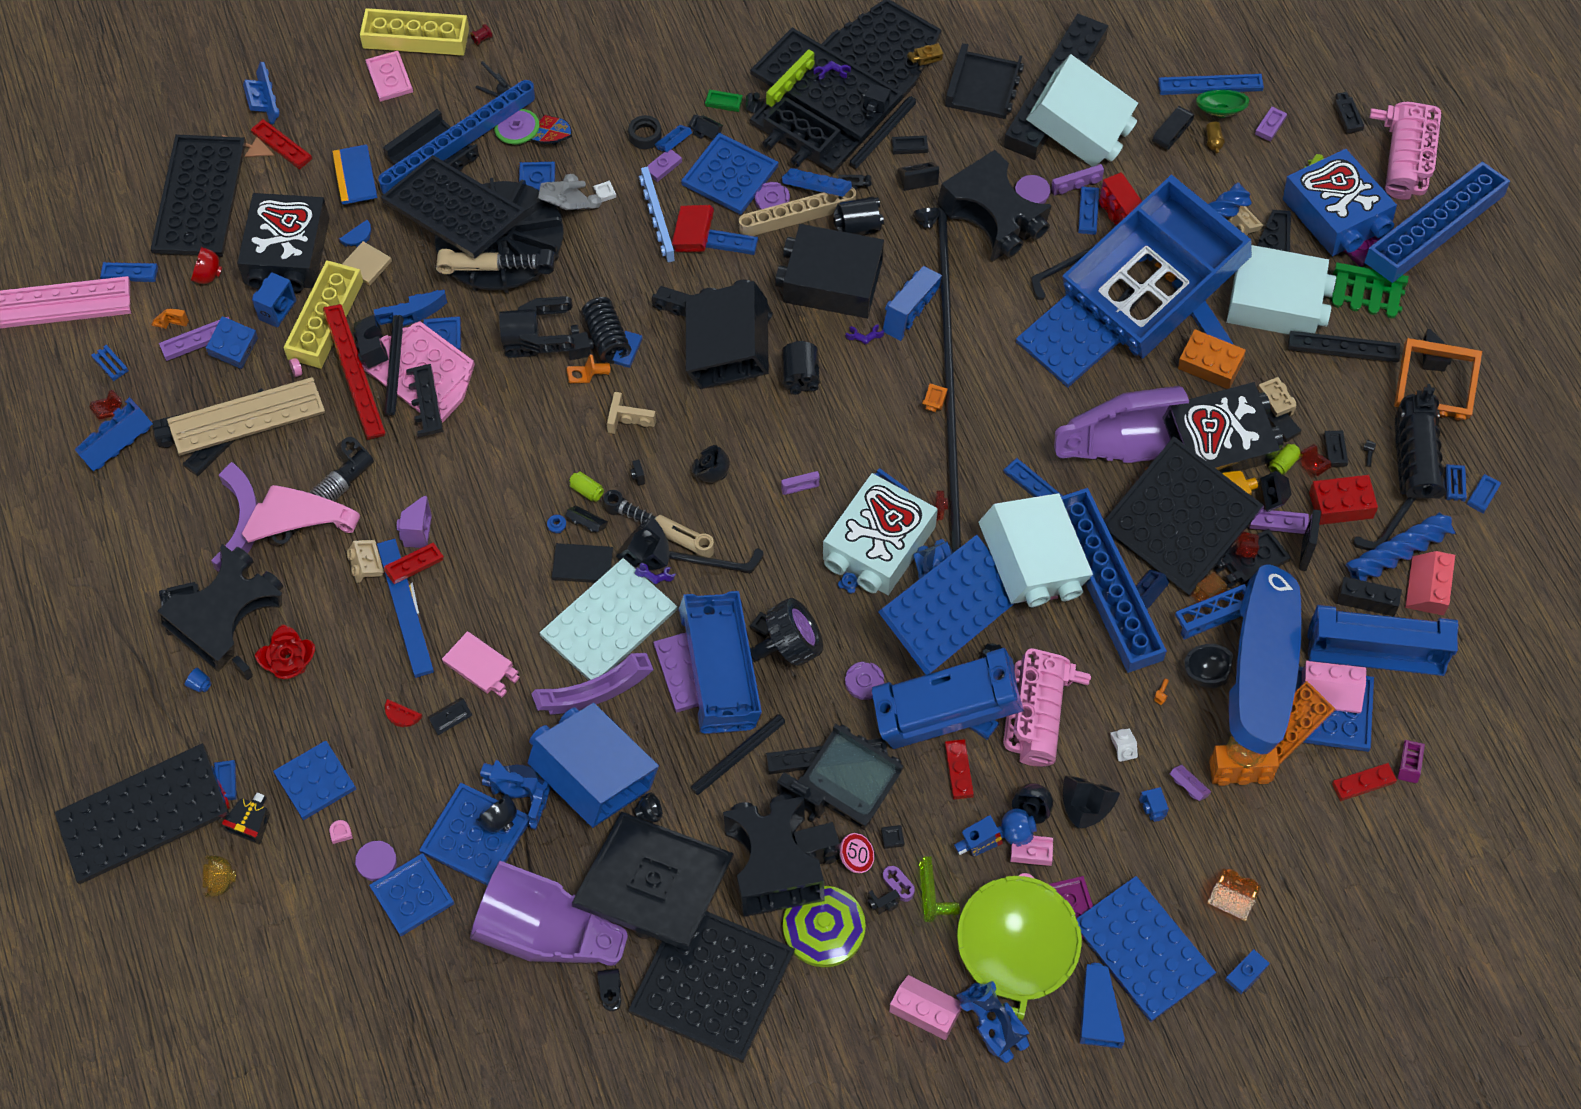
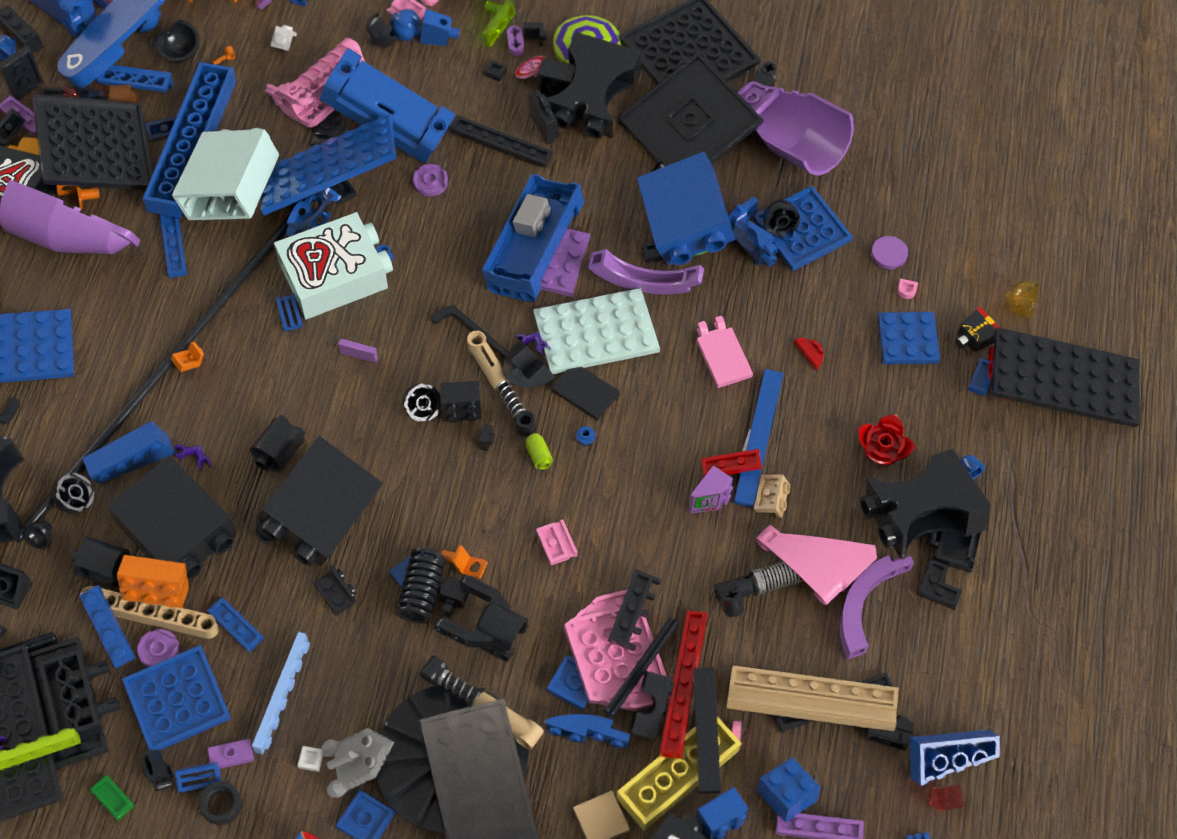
camera: 150 degrees left, 0 degrees up
(185, 562) = (934, 588): none -> black tile
(242, 667) = (926, 454): black tile -> none
(315, 339) = (706, 730): none -> black tile
(411, 894) = (875, 212): blue plate -> none
(449, 716) = (781, 324): black plate -> none
(523, 425) = (556, 542): none -> bright pink plate
(586, 518) = (557, 422): black plate -> none
(628, 415) = (465, 502): tan bracket -> none
(677, 481) = (460, 401): none -> black brick
(692, 228) = (259, 653): red piece -> none
(732, 671) = (531, 215): none -> light grey brick
(738, 754) = (581, 177): black axle -> none
(753, 102) = (86, 770): black arm -> none
(759, 625) = (474, 261): black tile -> none
(791, 632) = (464, 219): black wheel -> none
(803, 209) = (153, 581): none -> orange piece
(852, 775) = (498, 114): clear light blue panel -> none
(857, 180) = (69, 615): black piece -> none
(924, 247) = (72, 493): none -> black cylinder
(941, 504) = (264, 267): clear red bracket -> none
(959, 769) = (418, 78): red plate -> none
(1086, 801) = (343, 16): black brick -> none

